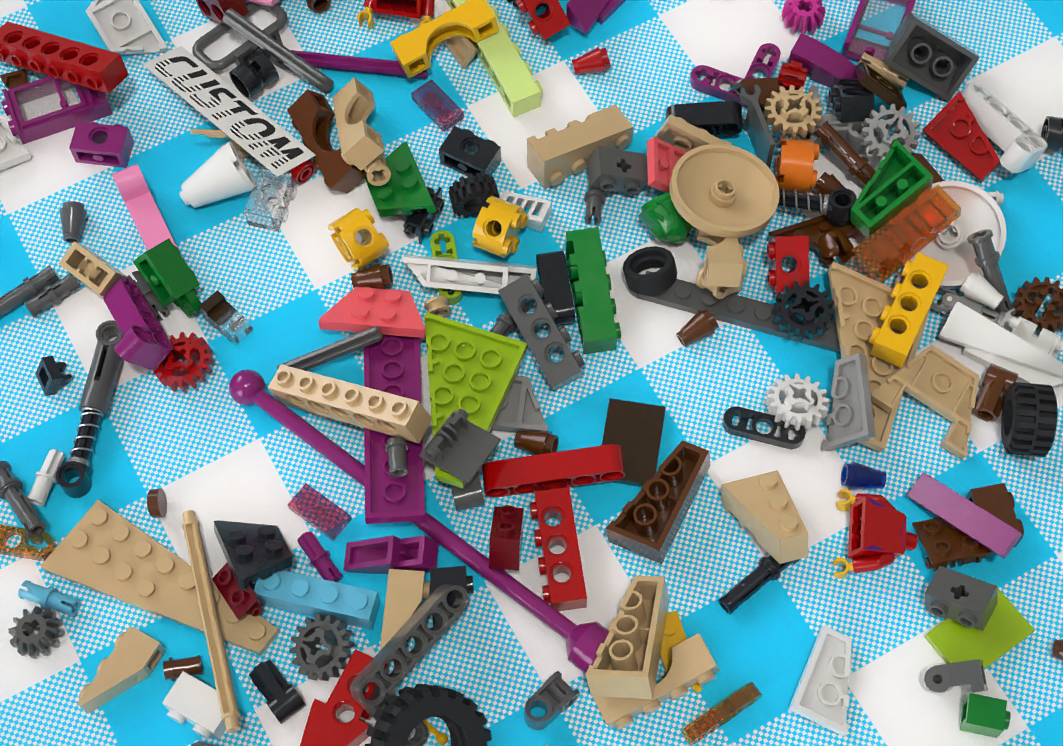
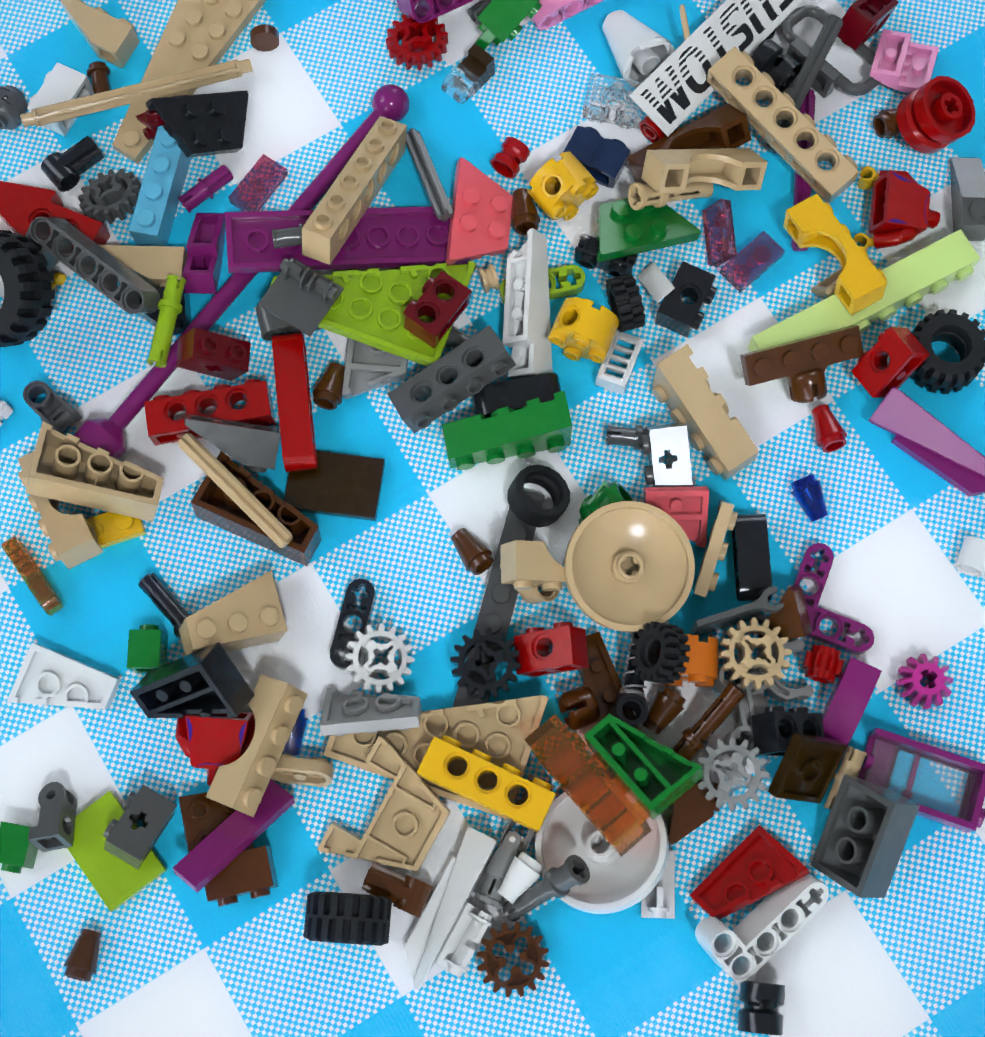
camera: 90 degrees right, 10 degrees up
(313, 77) = (763, 120): none -> tan brick
(316, 285) = (511, 156): none -> red wheel
(323, 209) = (599, 155): none -> dark blue brick
(409, 126) = (719, 232): none -> clear pink plate
(452, 173) = (655, 282): none -> white sticker
(471, 577) = (169, 309): none -> lime pin
(480, 331) = (441, 311): none -> dark red brick
(538, 70) = (803, 362): none -> reddish brown plate
(595, 506) = (245, 442): none -> dark grey slope
(648, 509) = (236, 490): none -> tan axle
(650, 78) = (810, 497): none -> clear blue cone
(793, 155) = (662, 666): none -> black tyre
(794, 601) = (146, 648): none -> green brick
(835, 543) = (194, 684): none -> black wedge
(899, 458) = (303, 771): none -> tan plate
(922, 503) = (246, 779): none -> tan arch

